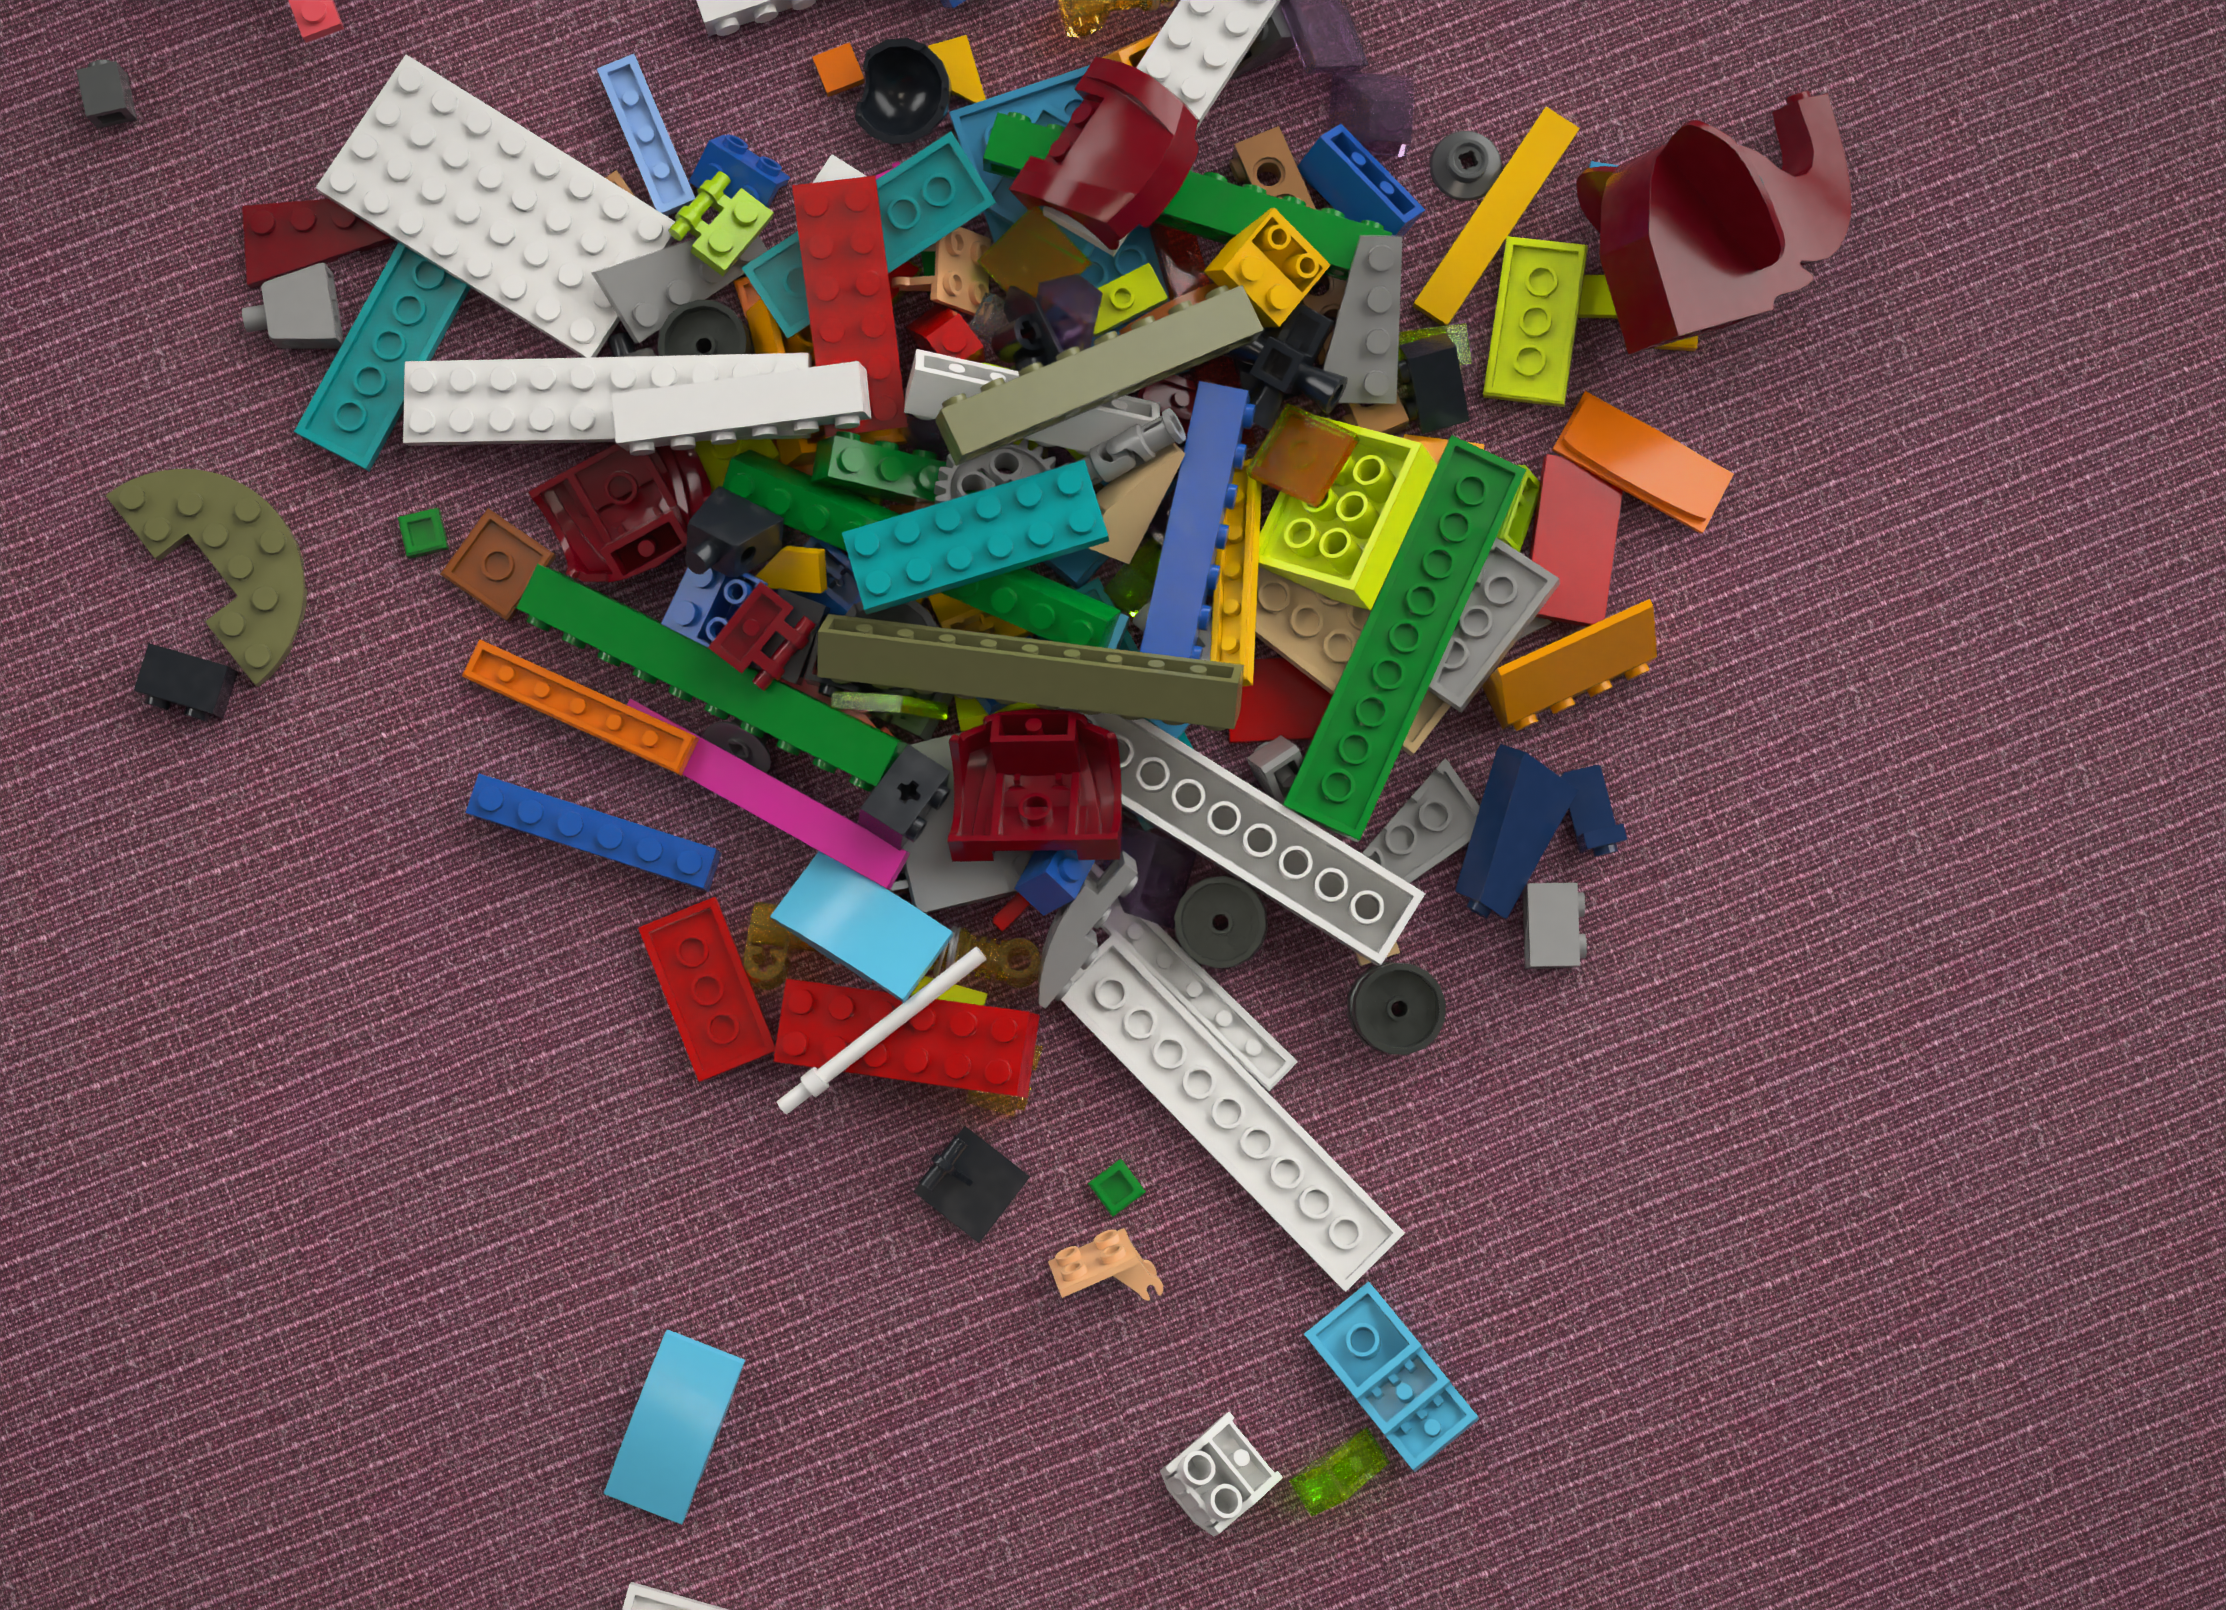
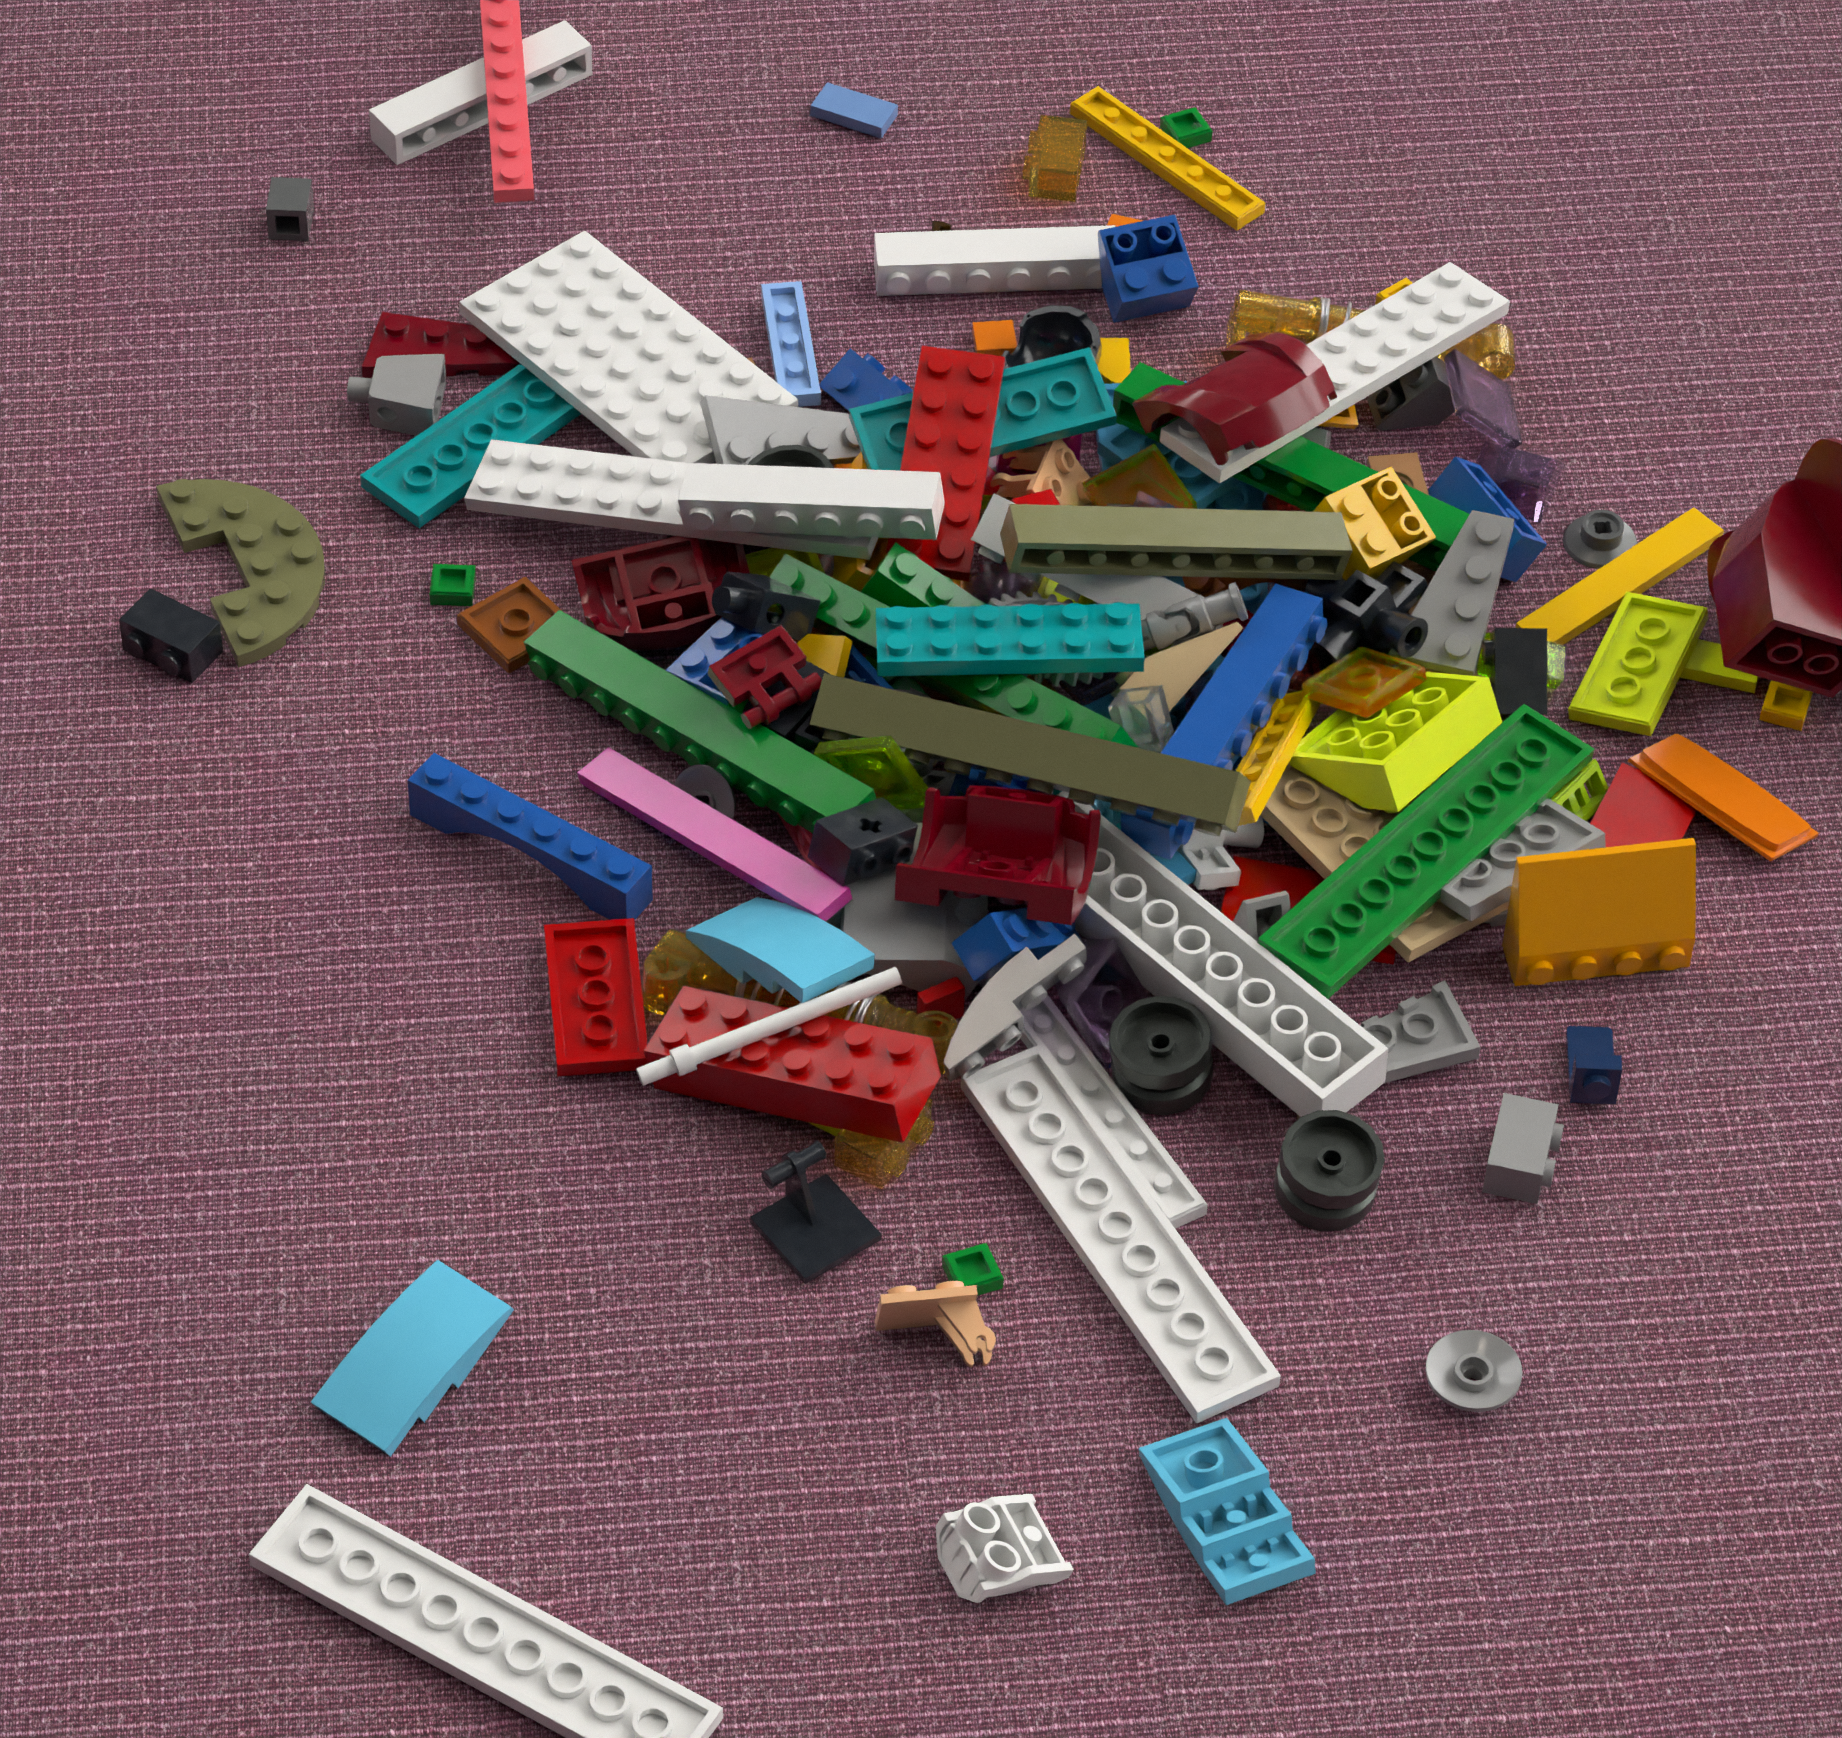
camera: 20 degrees right, 35 degrees down
(580, 707) = (556, 739): orange tile -> none
(730, 232) = (831, 412): lime plate -> none
(1115, 575) = (1143, 716): none -> clear brick
(1339, 1472) = (1137, 1578): clear neon green slope -> none
(1511, 831) = (1501, 1044): dark blue slope -> none
(1585, 1180) = (1474, 1356): none -> light grey dish

